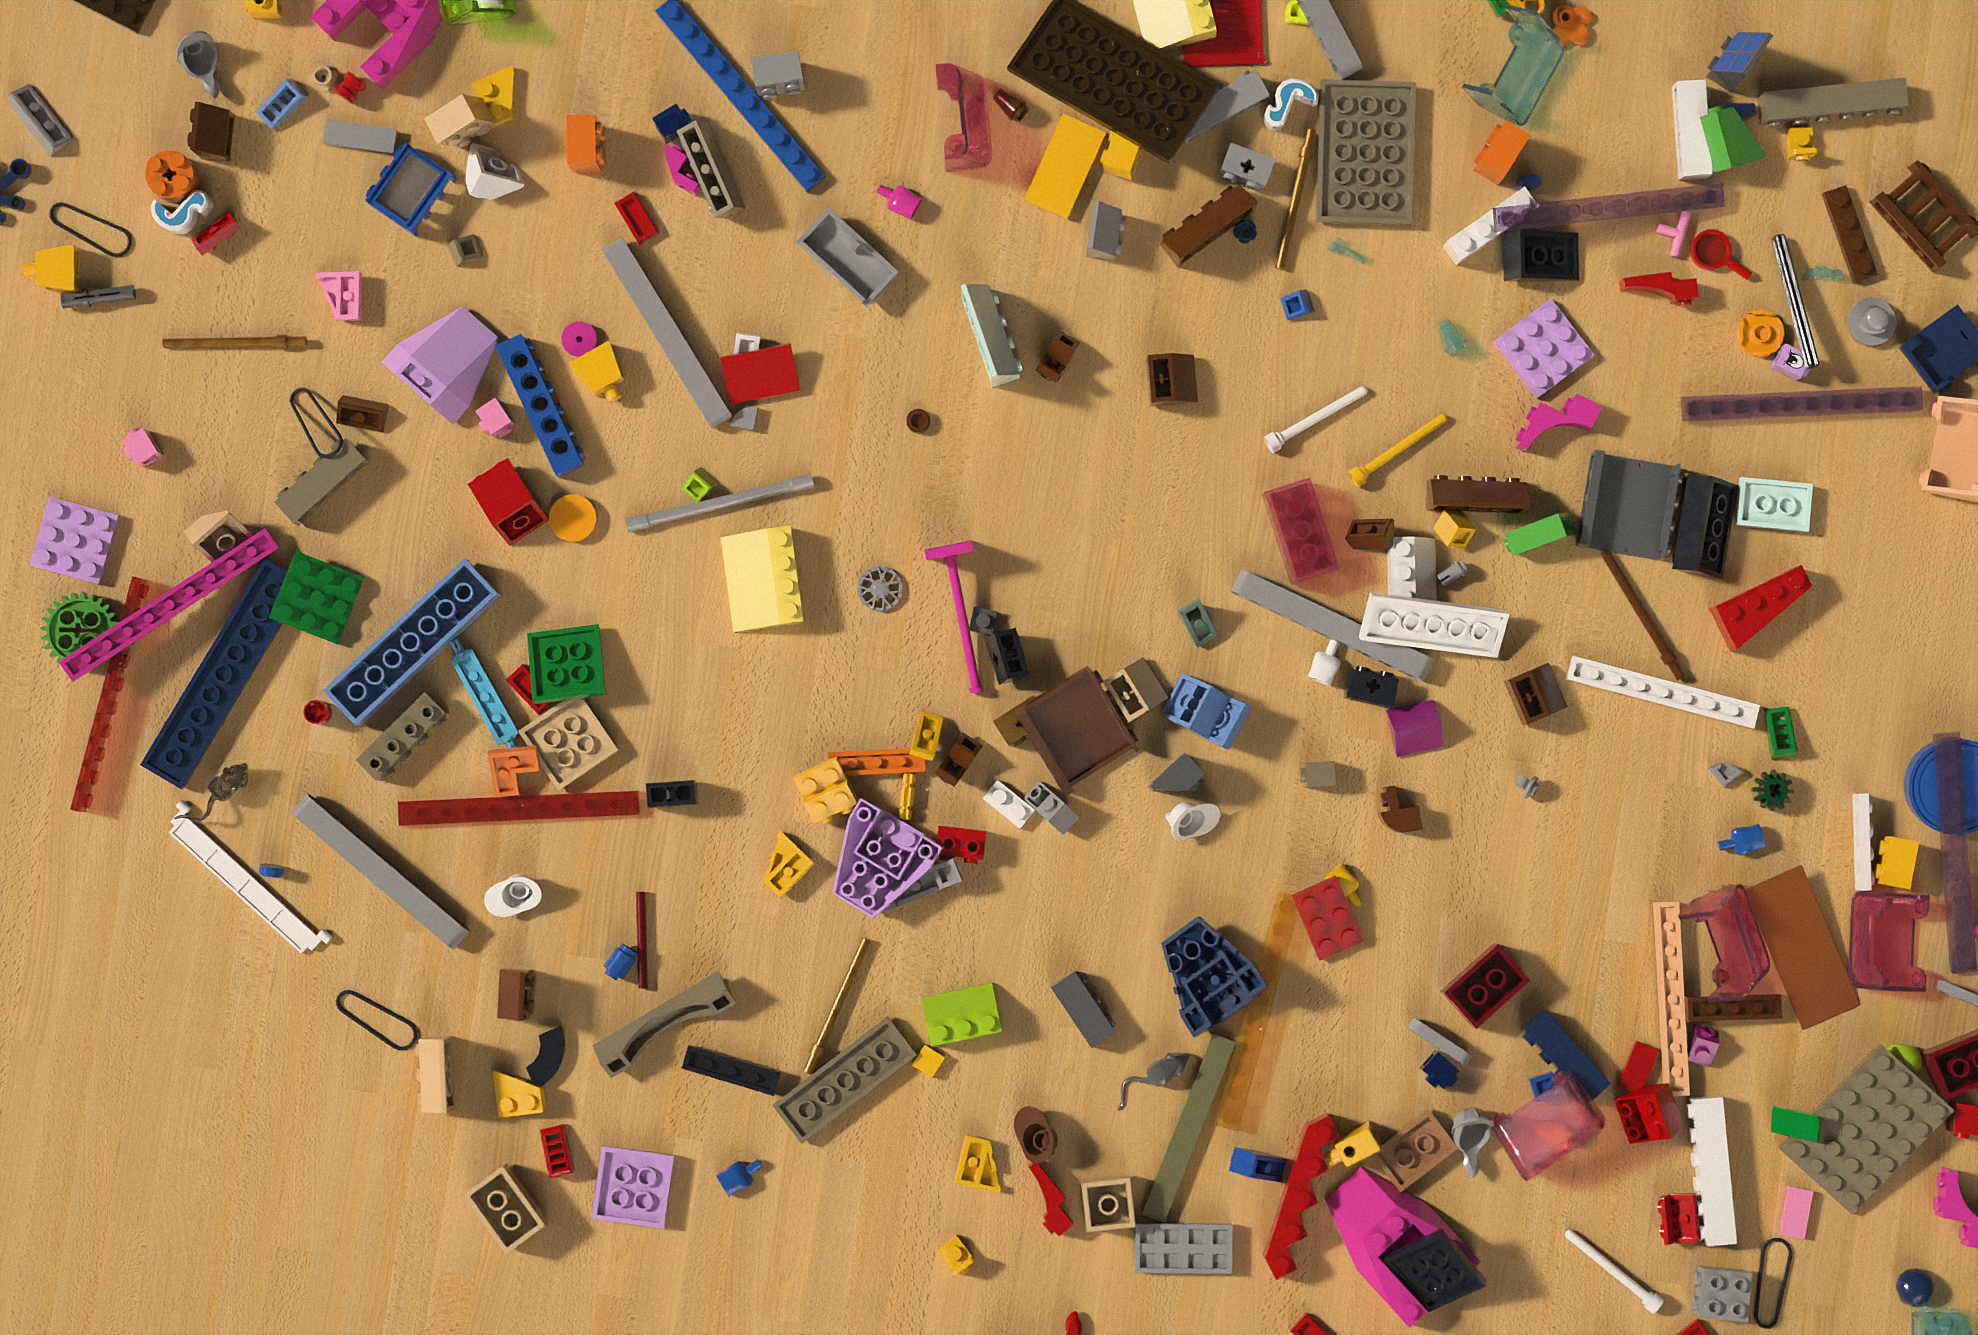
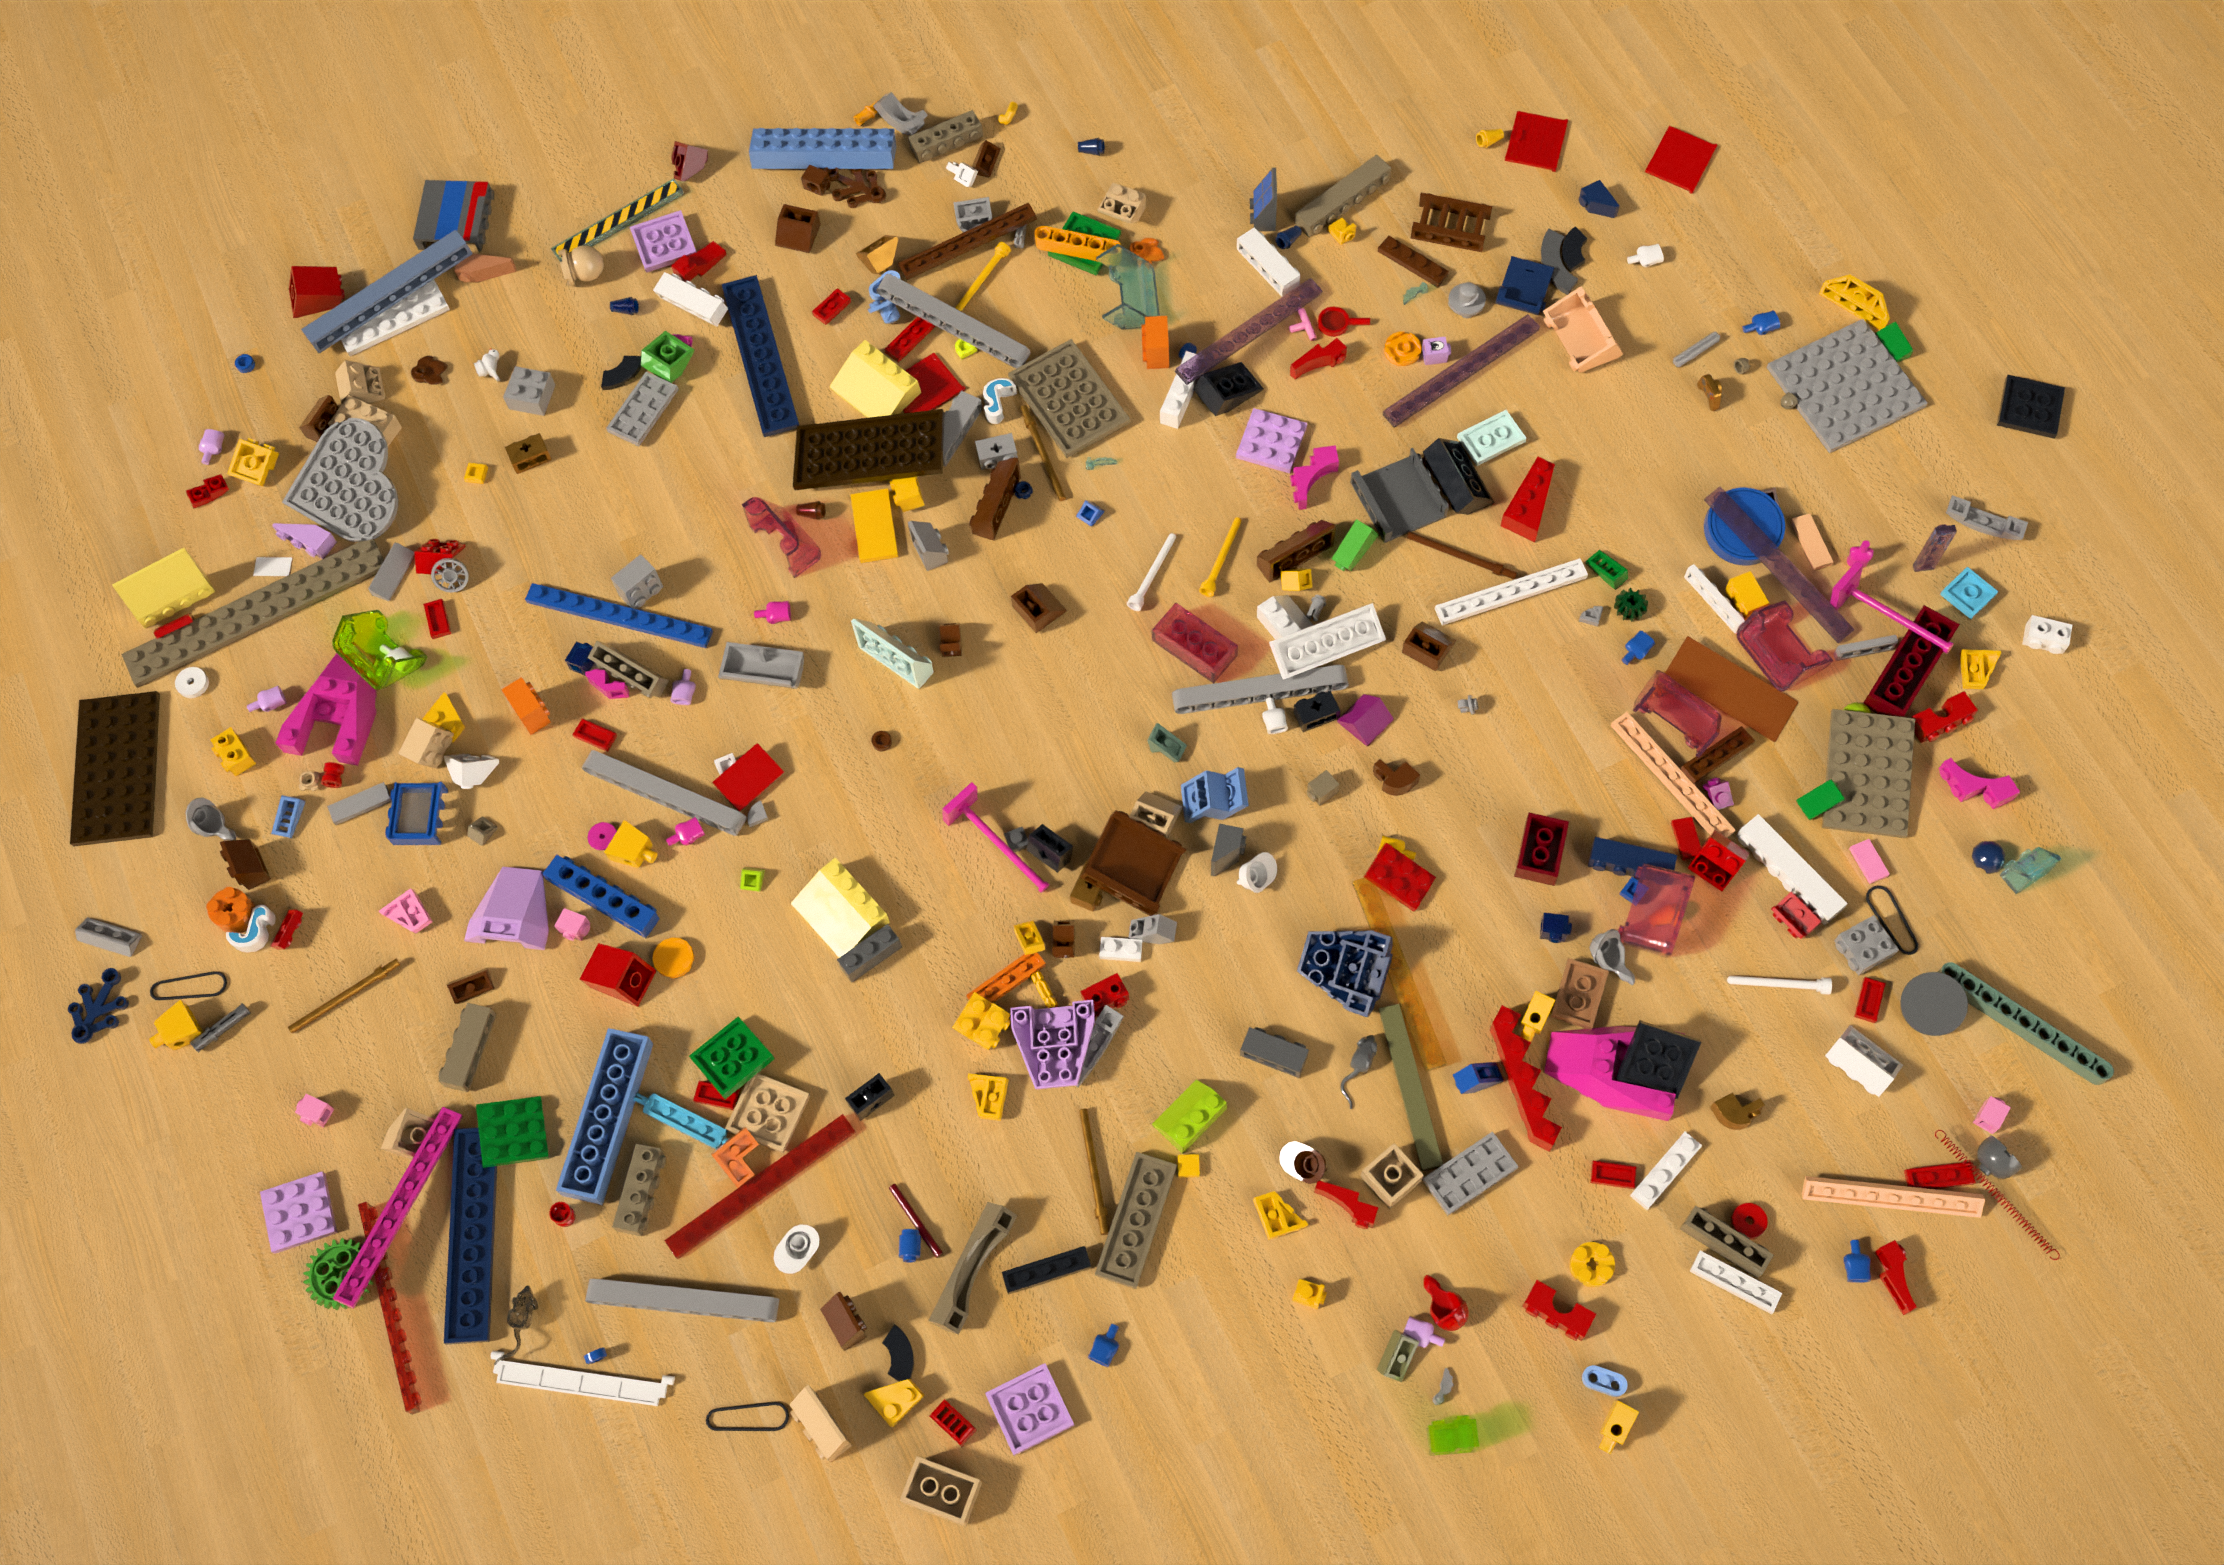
camera: 30 degrees left, 20 degrees down
(305, 428) = (443, 1000): black piece -> none
(664, 392) = (686, 832): none -> dark pink piece
(755, 226) = (683, 689): none -> lavender piece
(763, 645) = (869, 953): none -> dark grey brick
(792, 485) = (819, 836): light grey piece -> none
(880, 588) = (928, 865): light grey wheel -> none
(1371, 533) = (1243, 615): reddish brown slope -> none
(1439, 1041) = (1537, 908): light grey beam -> none
(1451, 338) = (1208, 470): clear light blue cone -> none
(1729, 139) = (1295, 249): bright green slope -> none
(1795, 301) = (1410, 314): axle -> none

